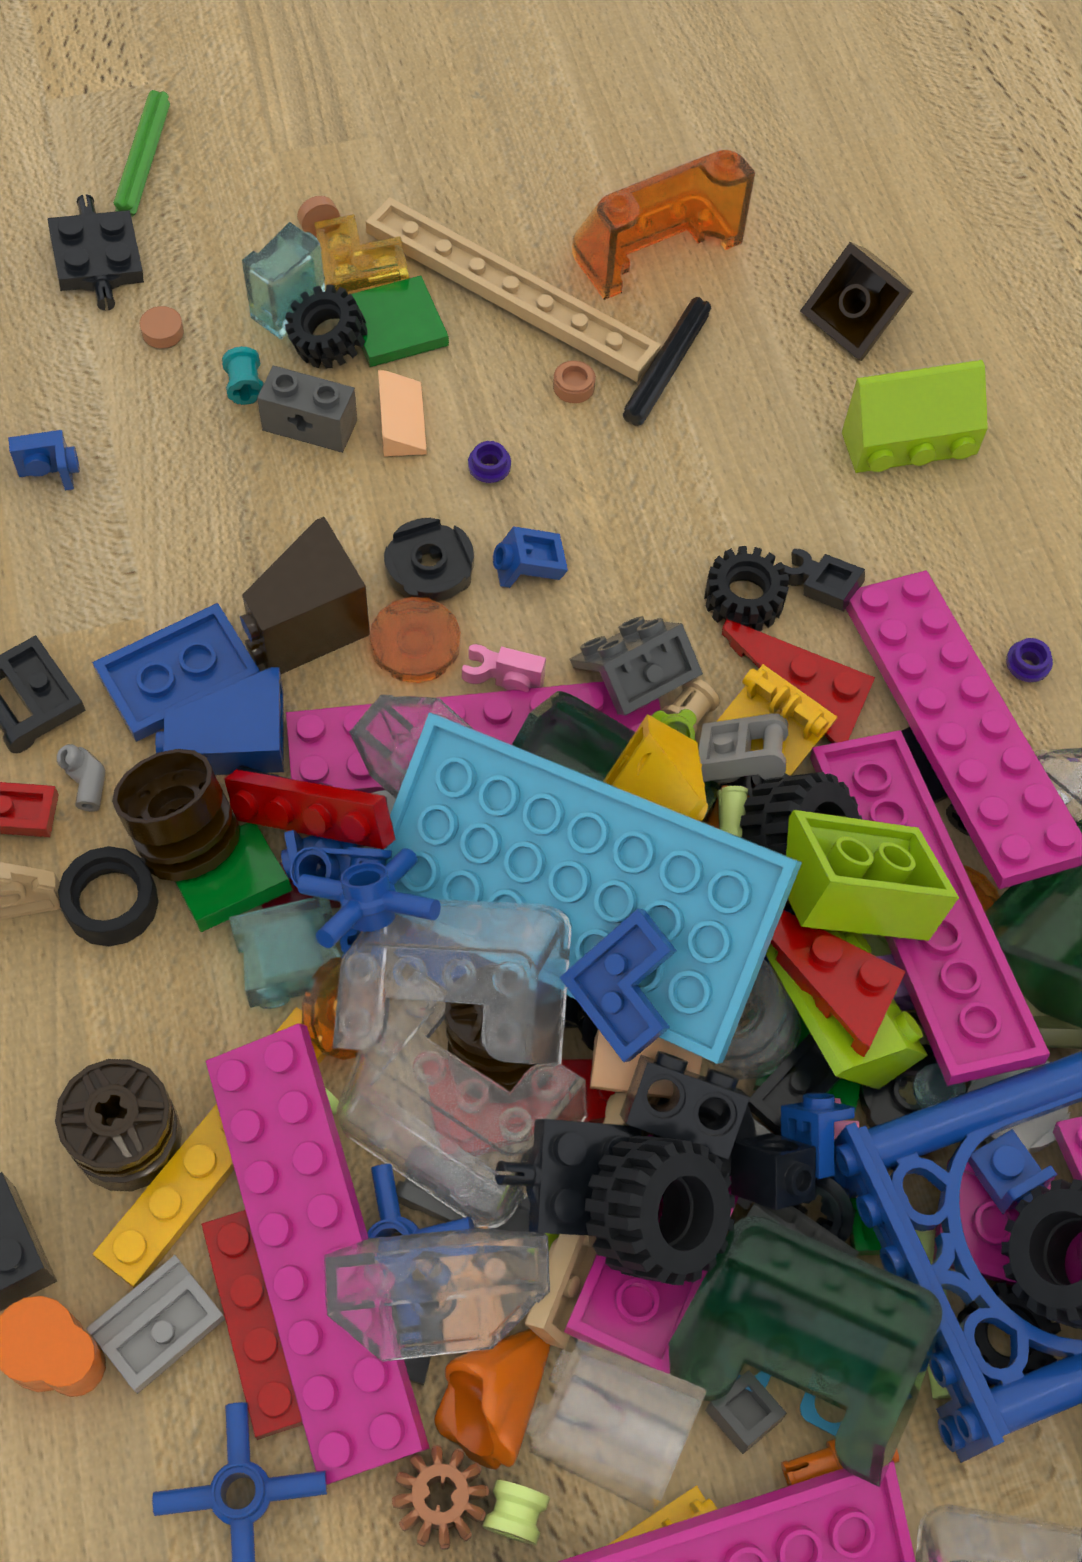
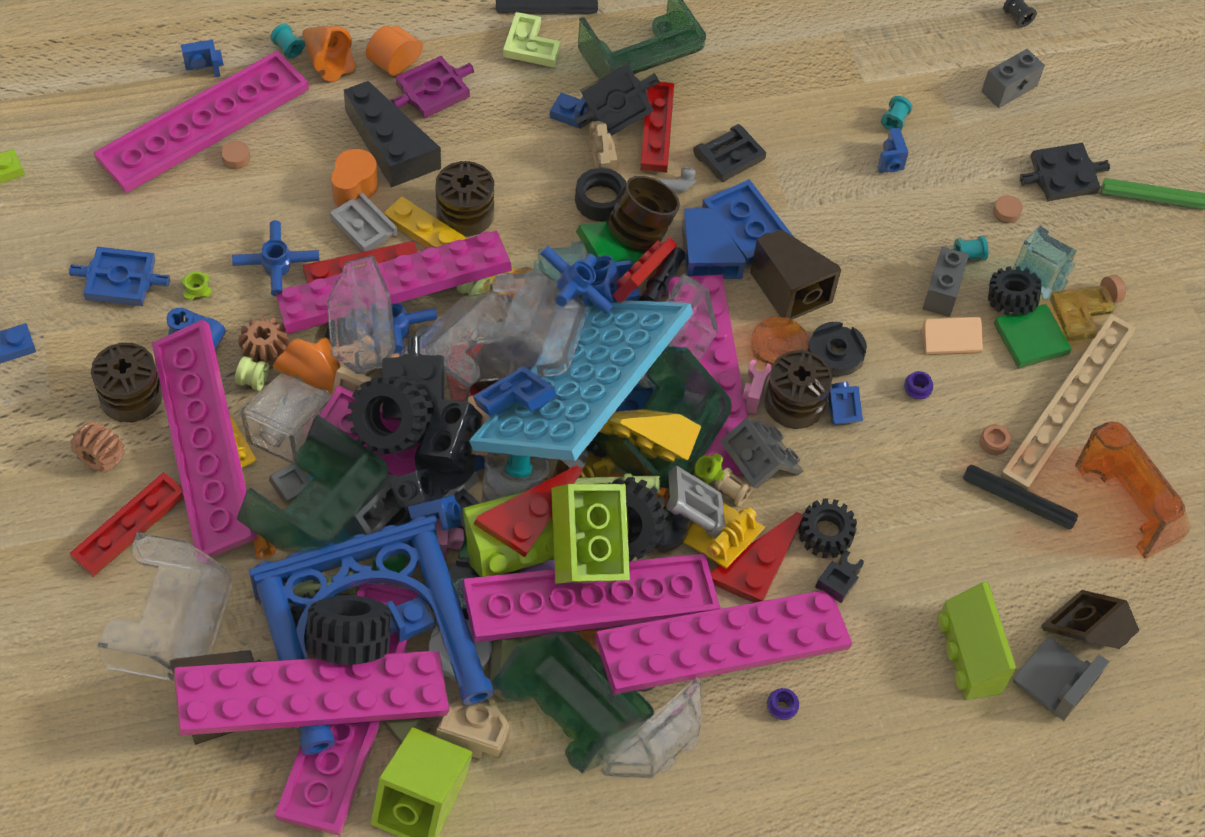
camera: 90 degrees right, 5 degrees down
(521, 602) = (798, 389): none -> dark brown wheel
(946, 329) = (1058, 677): none -> dark grey bracket

